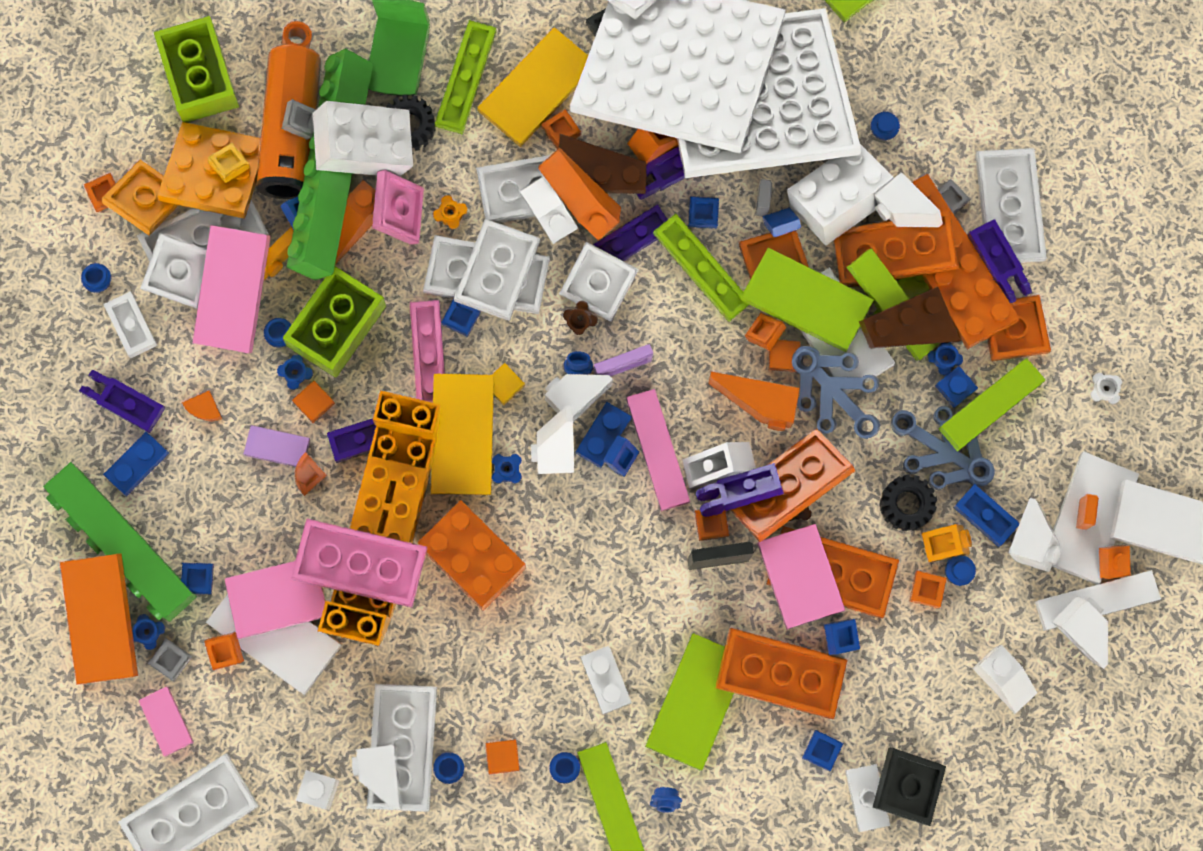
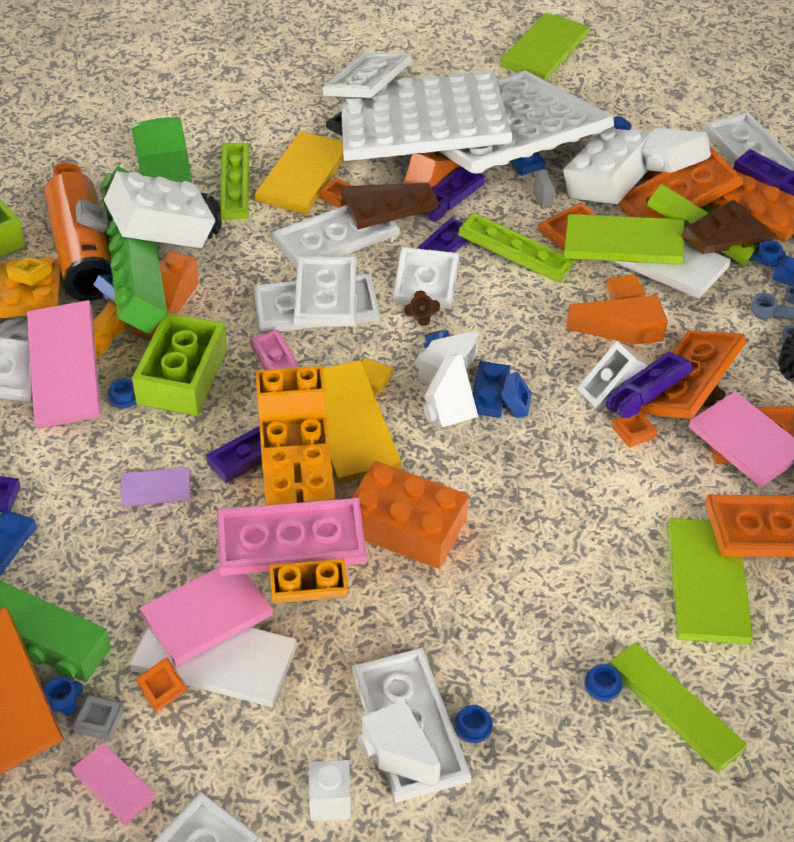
camera: 15 degrees left, 30 degrees down
(198, 577) = (113, 623): blue tile -> none
(203, 407) = (62, 474): orange tile -> none
(287, 368) = (152, 419): blue plate -> none
(307, 474) = (198, 497): orange tile -> none
(313, 401) = (181, 440): orange tile -> none
(398, 207) = (210, 265): bright pink tile -> none
(452, 220) = (261, 267): light orange plate -> none
(460, 318) = (305, 339): blue tile -> none
(500, 474) = (407, 445): blue plate -> none
(502, 757) = (528, 695): orange tile -> none
(549, 209) = (357, 236): white slope -> none
(581, 194) = (380, 212): orange slope -> none
(605, 680) = (603, 588): white plate -> none
(624, 361) = (485, 322): lavender tile -> none
(658, 450) = (551, 387): bright pink tile -> none
(666, 799) = (731, 675): blue plate -> none
(703, 212) = (496, 212): blue tile -> none
(720, 555) = (661, 436): pearl dark grey tile -> none
(765, 331) = (599, 274): orange tile -> none
(782, 222) = (569, 201): blue tile -> none
(832, 389) = (689, 290): sand blue plant -> none

